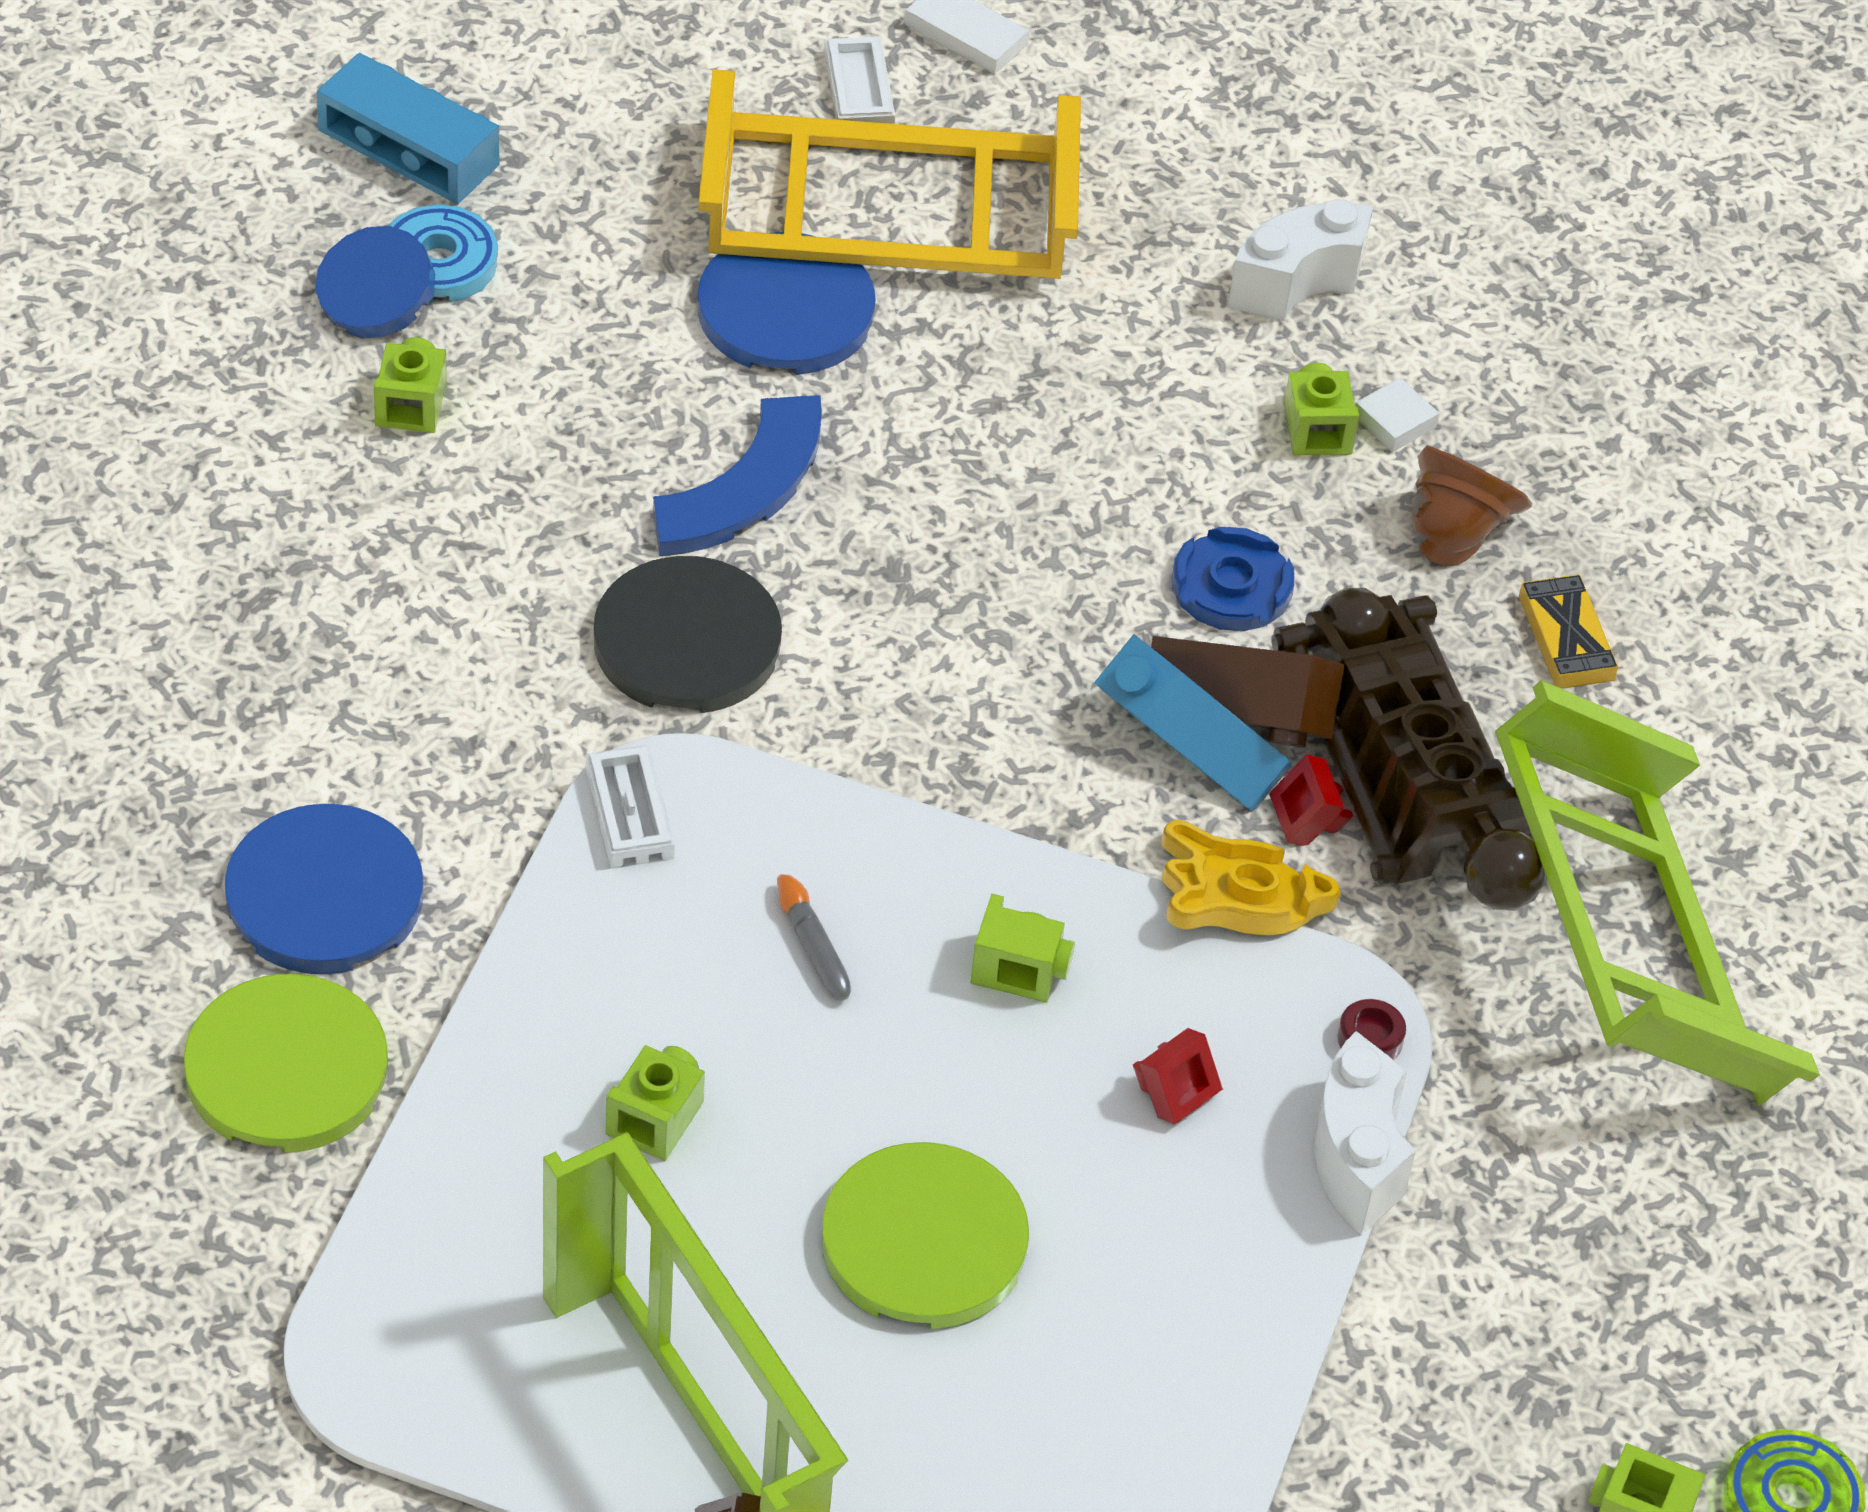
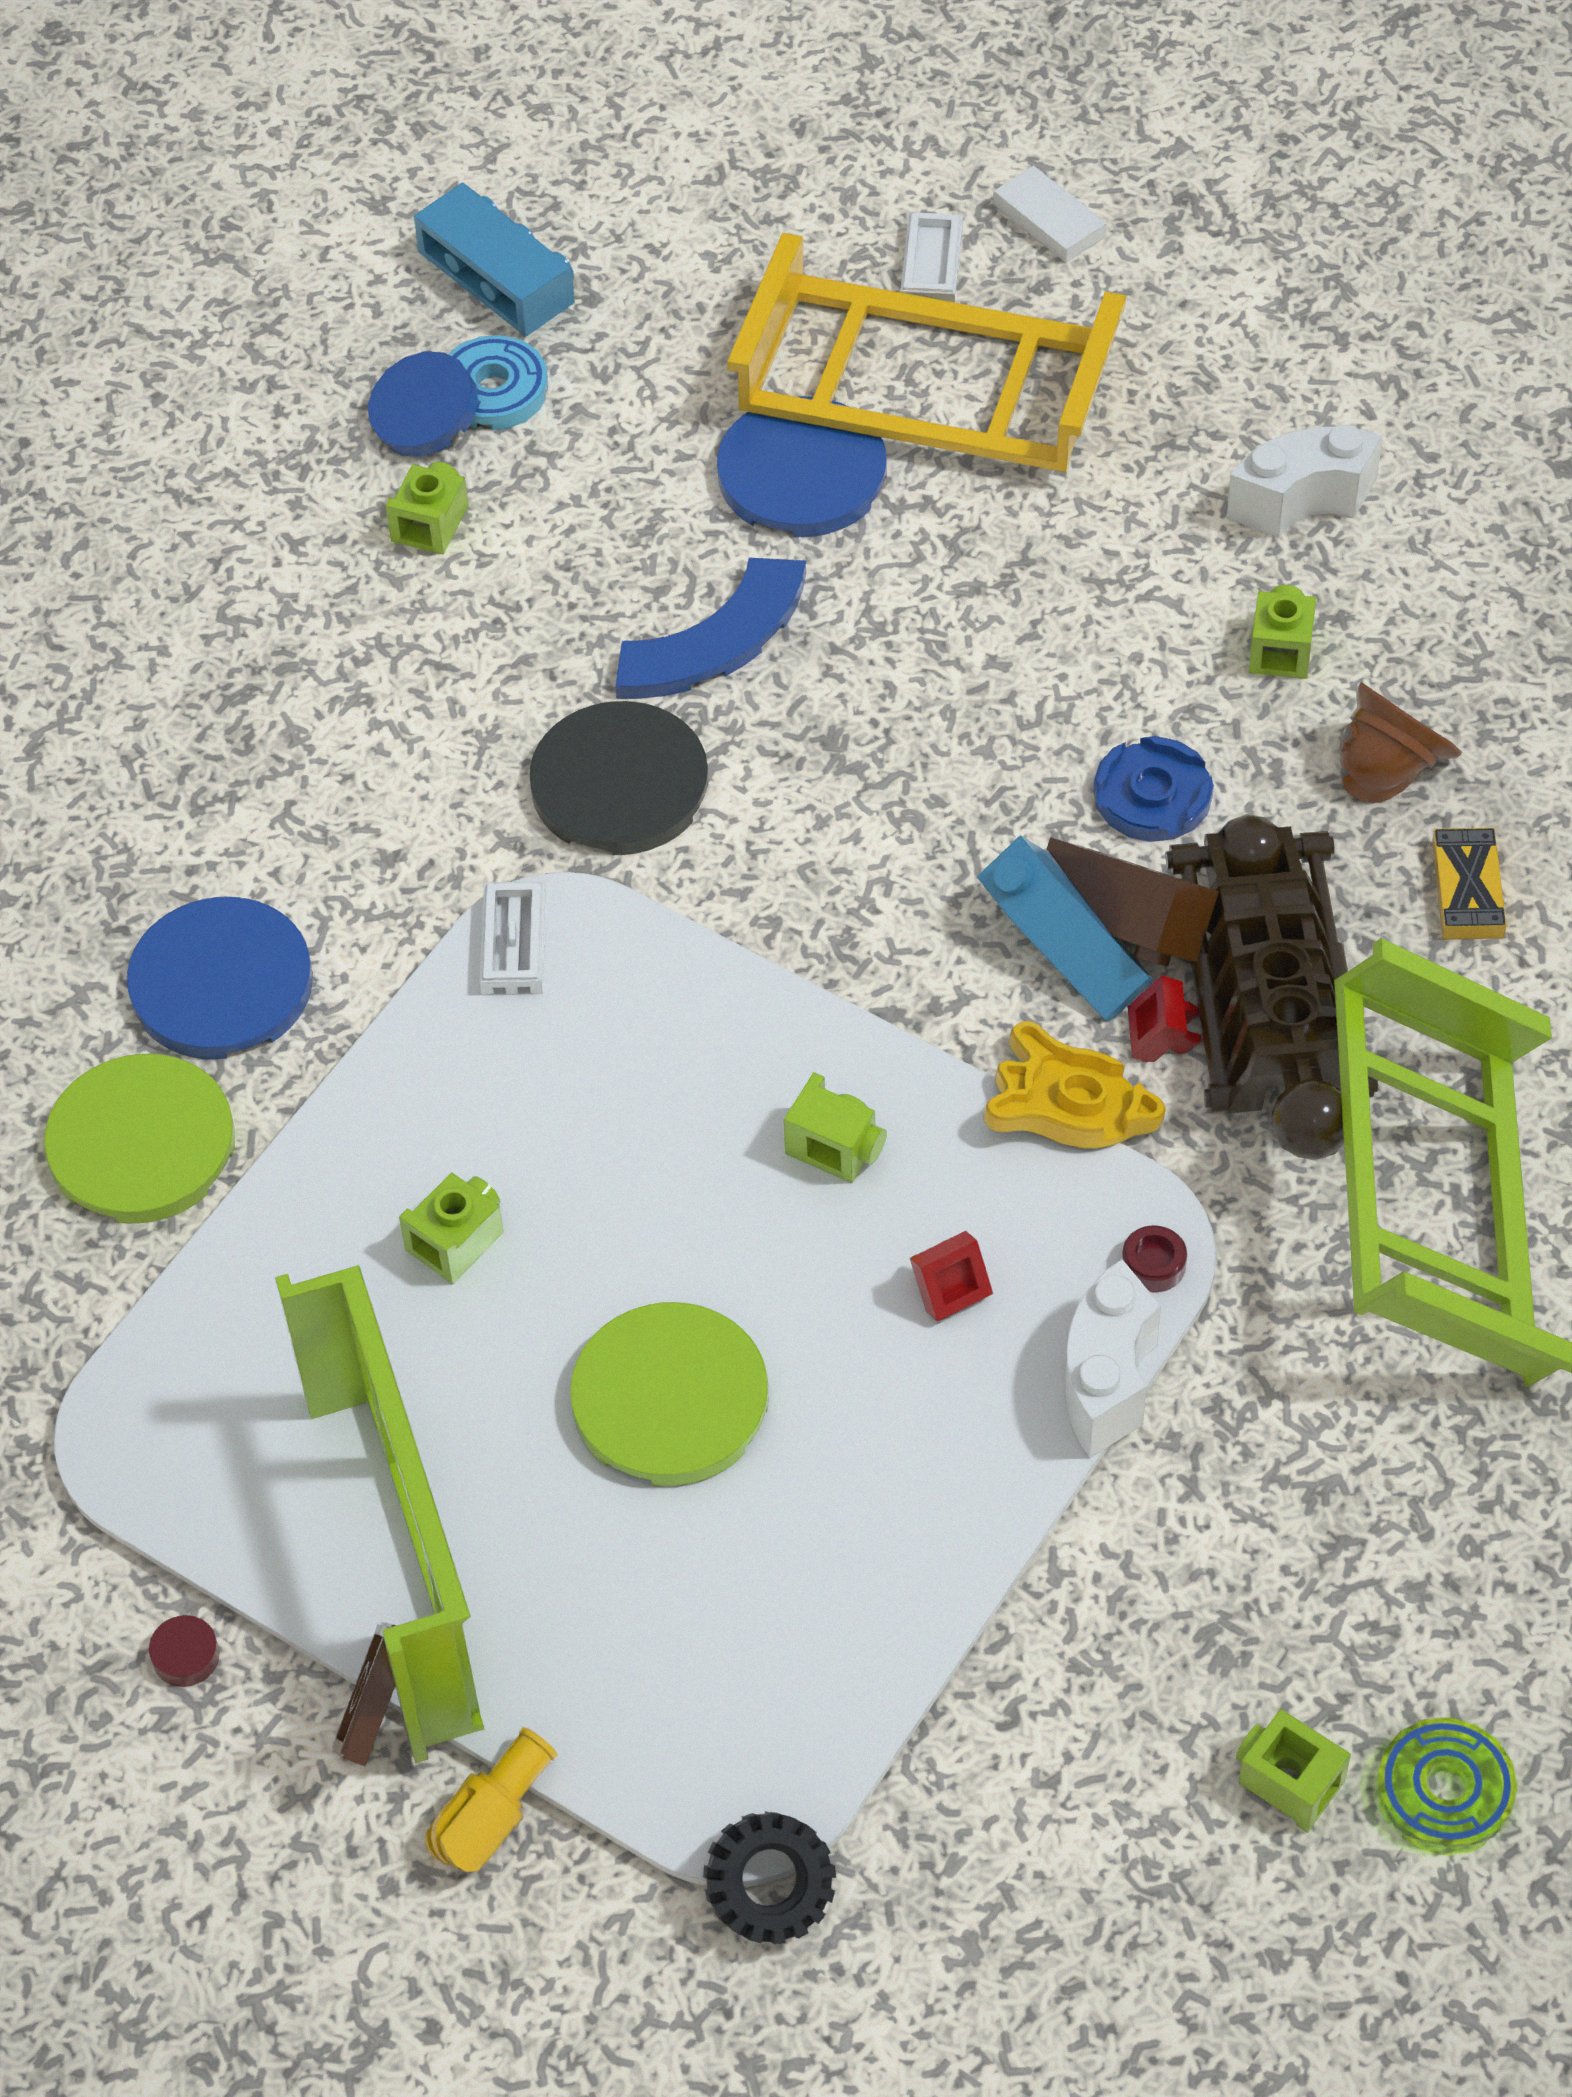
camera: 20 degrees right, 5 degrees up
(796, 903) = (653, 1118): flat silver piece -> none
(1396, 414) = (1359, 644): white tile -> none

